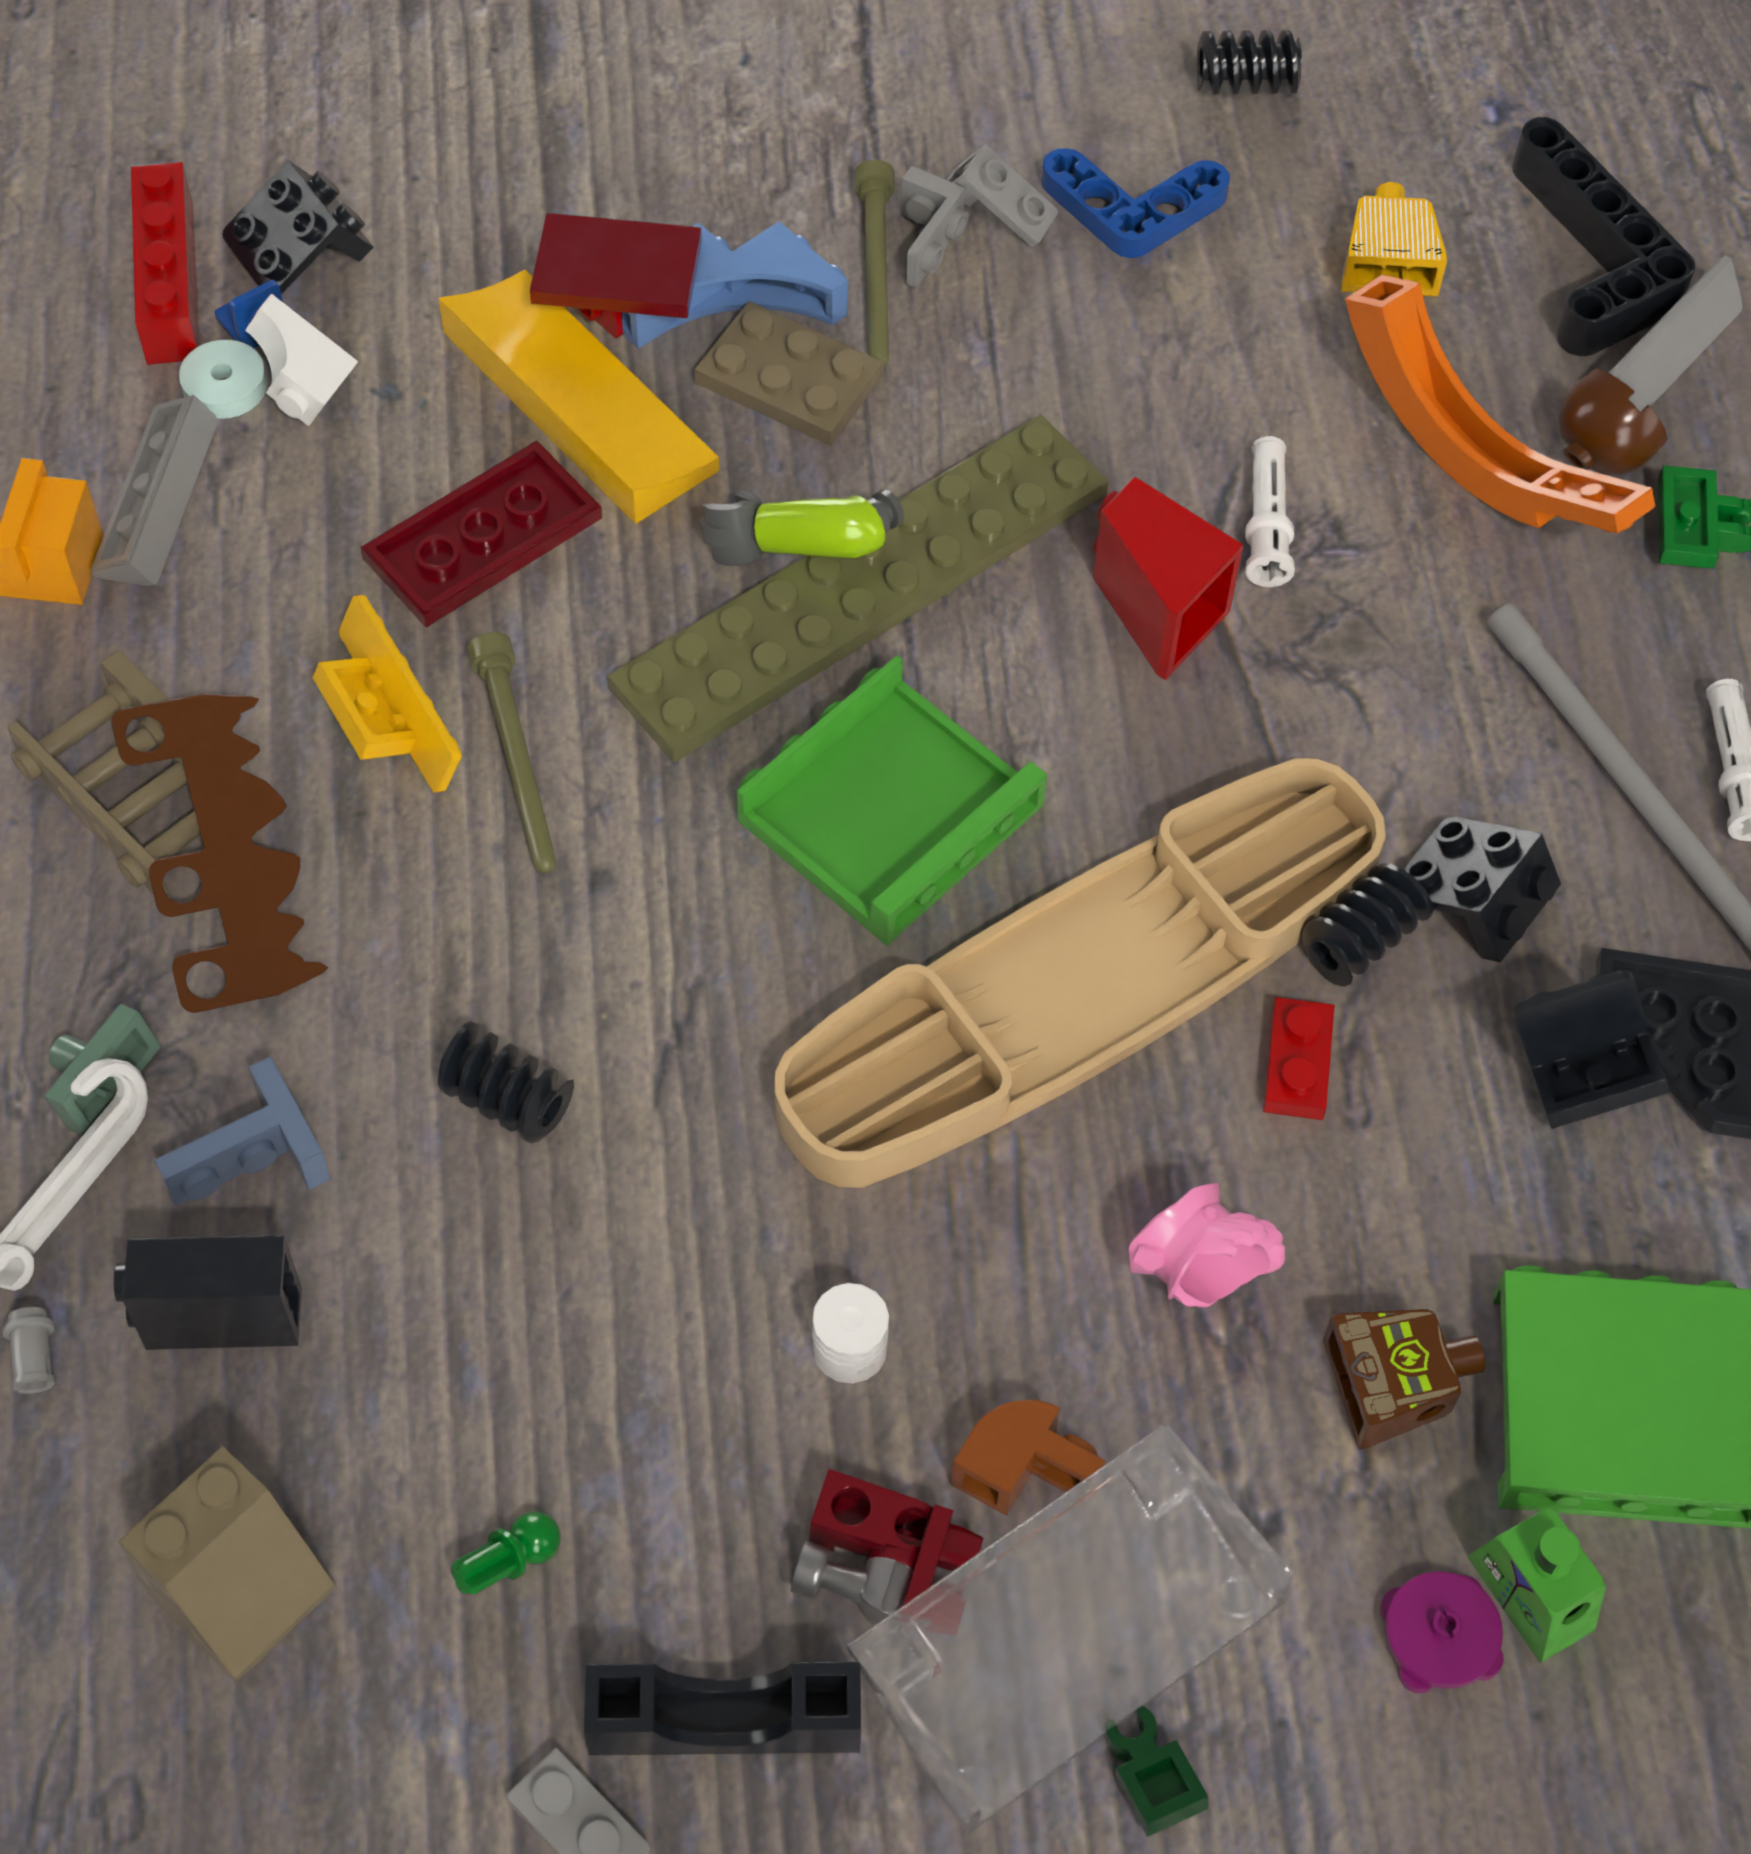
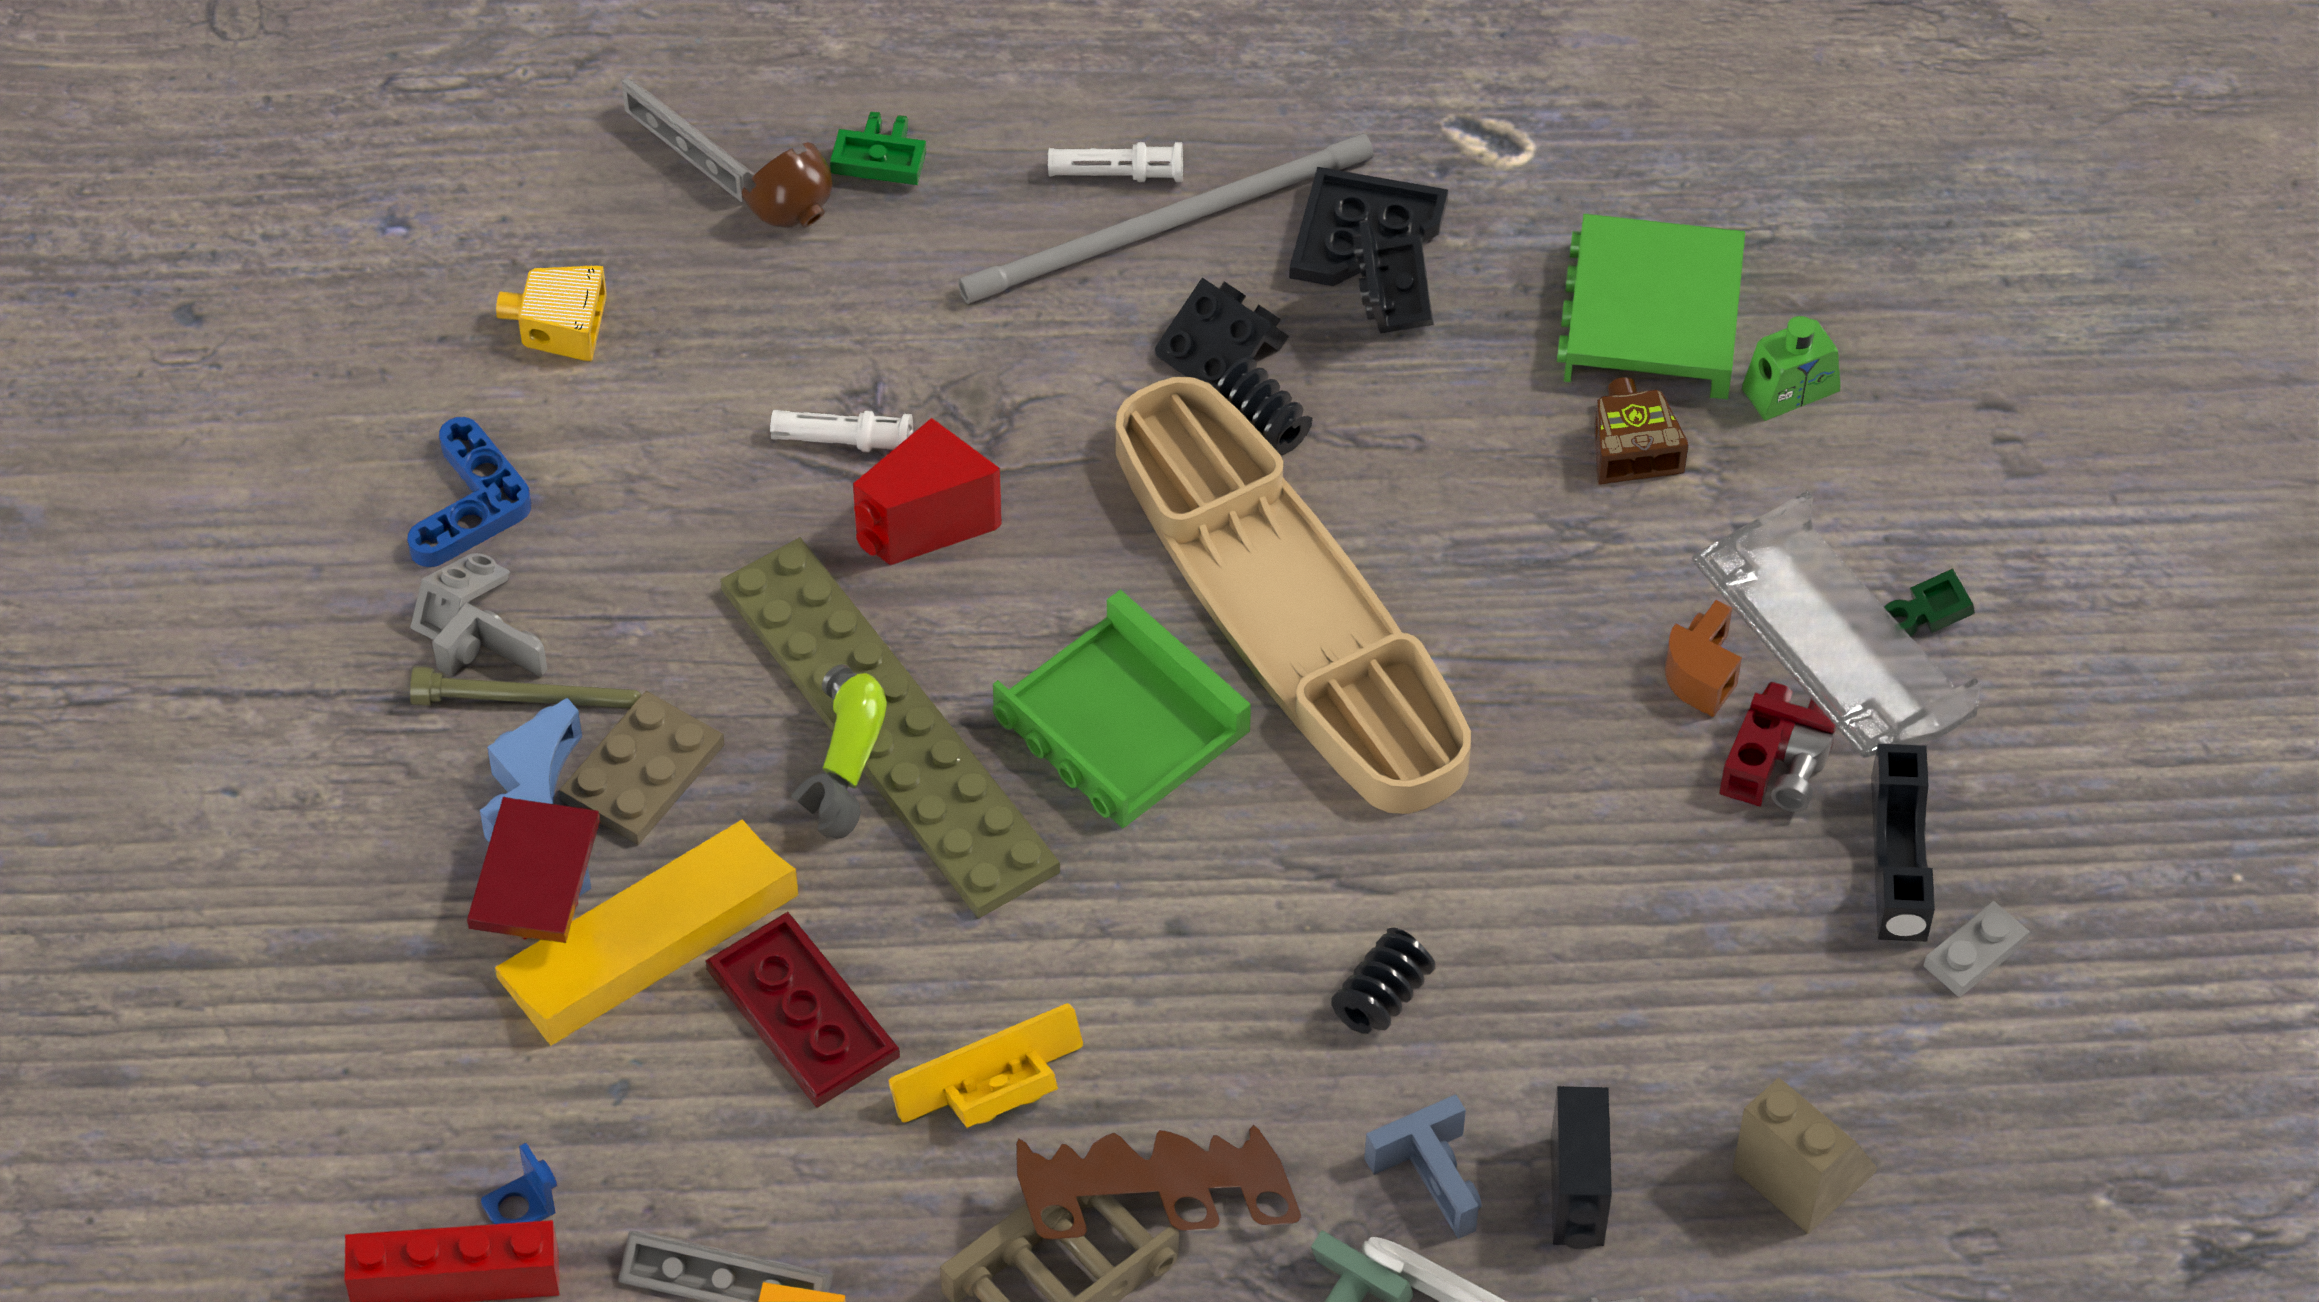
camera: 85 degrees left, 5 degrees down
(224, 359) = (590, 1202): light aqua piece -> none
(292, 225) = (422, 1161): black bracket -> none
(302, 360) = (608, 1136): white arch -> none
(493, 659) = (956, 994): olive piece -> none
(531, 1540) = (1778, 986): green axle -> none
(850, 1333) = (1606, 757): white piece -> none
(1205, 1249) = (1542, 530): bright pink piece -> none
(1249, 60) = (326, 387): black piece -> none
(1299, 1058) = (1368, 469): red plate -> none
(1442, 1631) = (1822, 437): magenta piece -> none
(1460, 434) = (805, 277): orange arch -> none
(1642, 258) = (568, 155): black beam -> none

